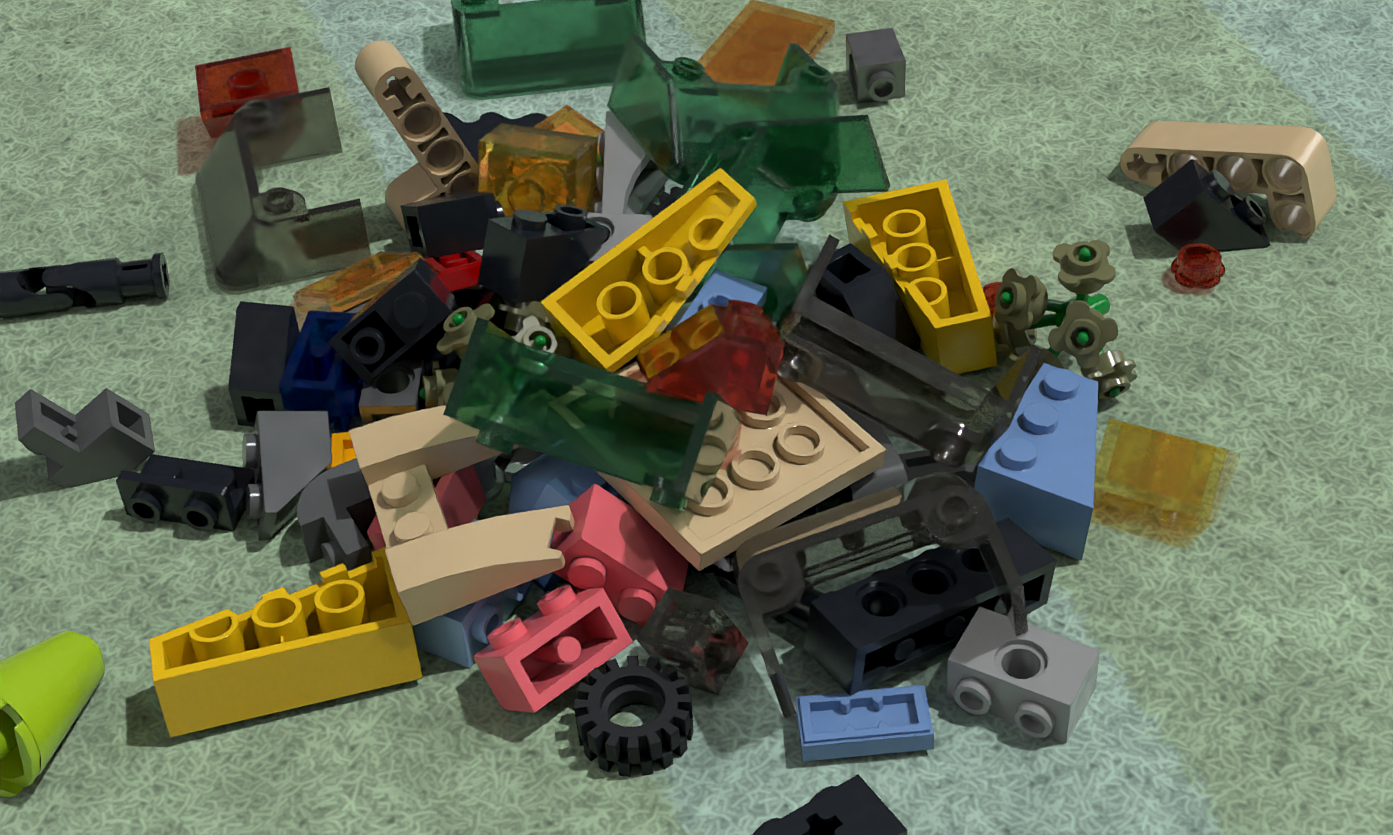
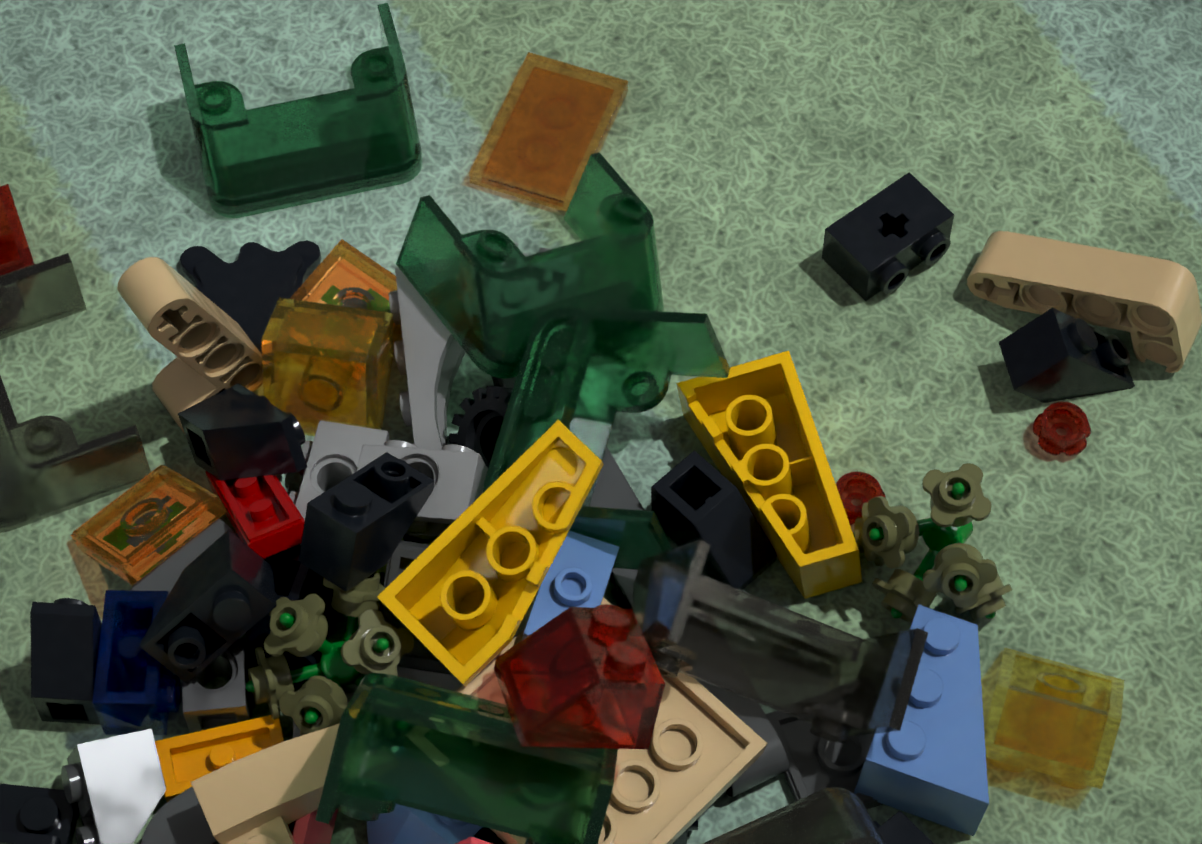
camera: 10 degrees left, 15 degrees up
(875, 65) = (683, 154): flat silver brick -> none
(1050, 126) = (888, 237): none -> black brick

